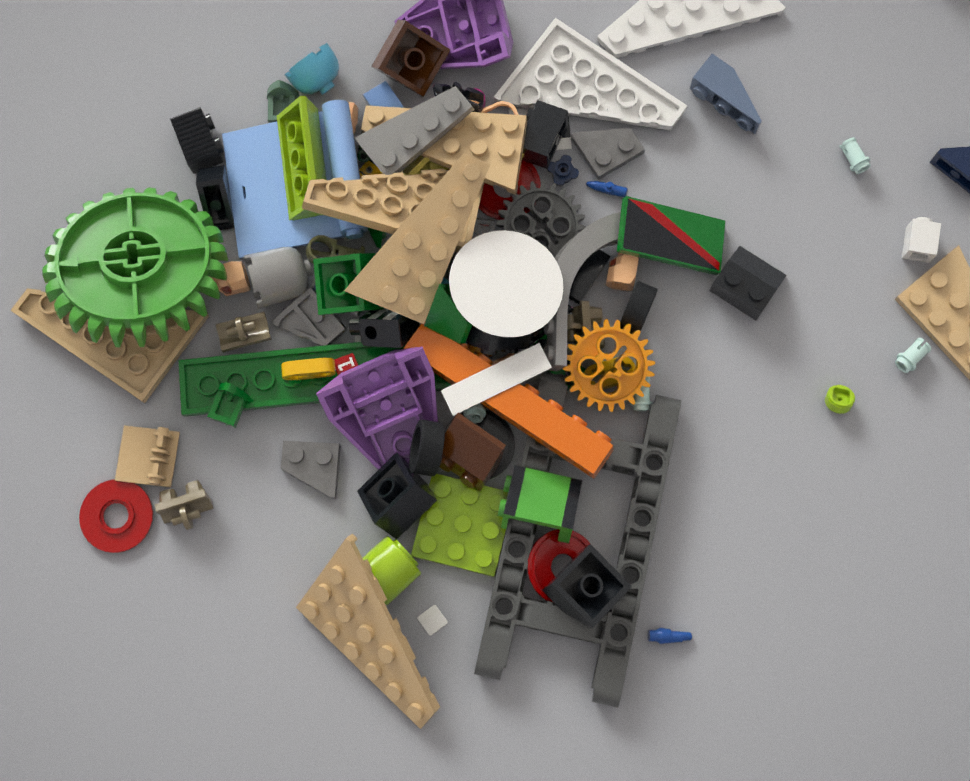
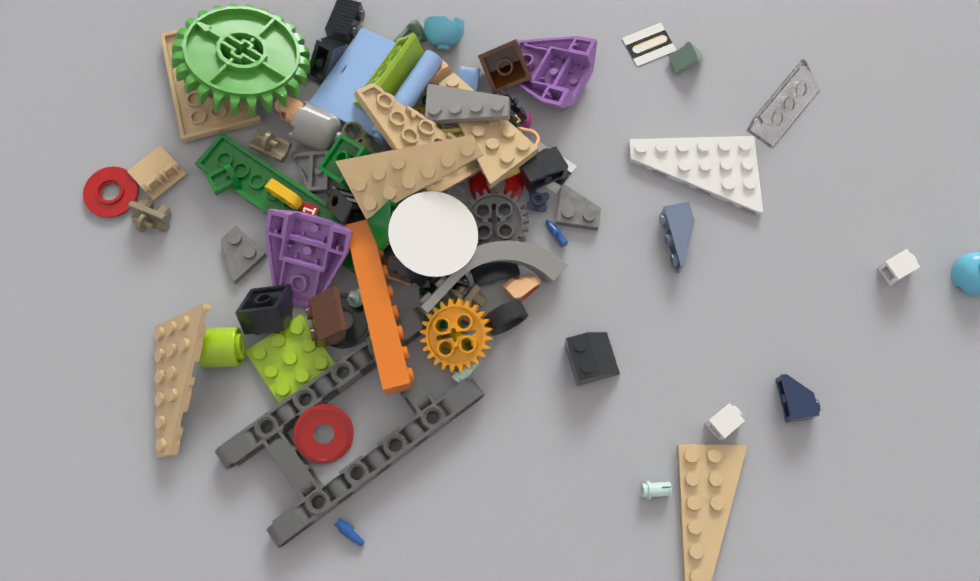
camera: 35 degrees right, 5 degrees down
(427, 448) = (304, 293): black tyre -> none
(432, 620) = (224, 401): white sticker -> none
(496, 379) = (379, 286): white sticker -> none
(541, 500) = (343, 382): bright green panel -> none
(587, 82) = (600, 162): white wing -> none
(587, 587) = (320, 456): black slope -> none
(671, 235) = (565, 289): tile -> none
(839, 399) = (584, 477): lime tile -> none
(855, 156) = (727, 339): light aqua pin -> none

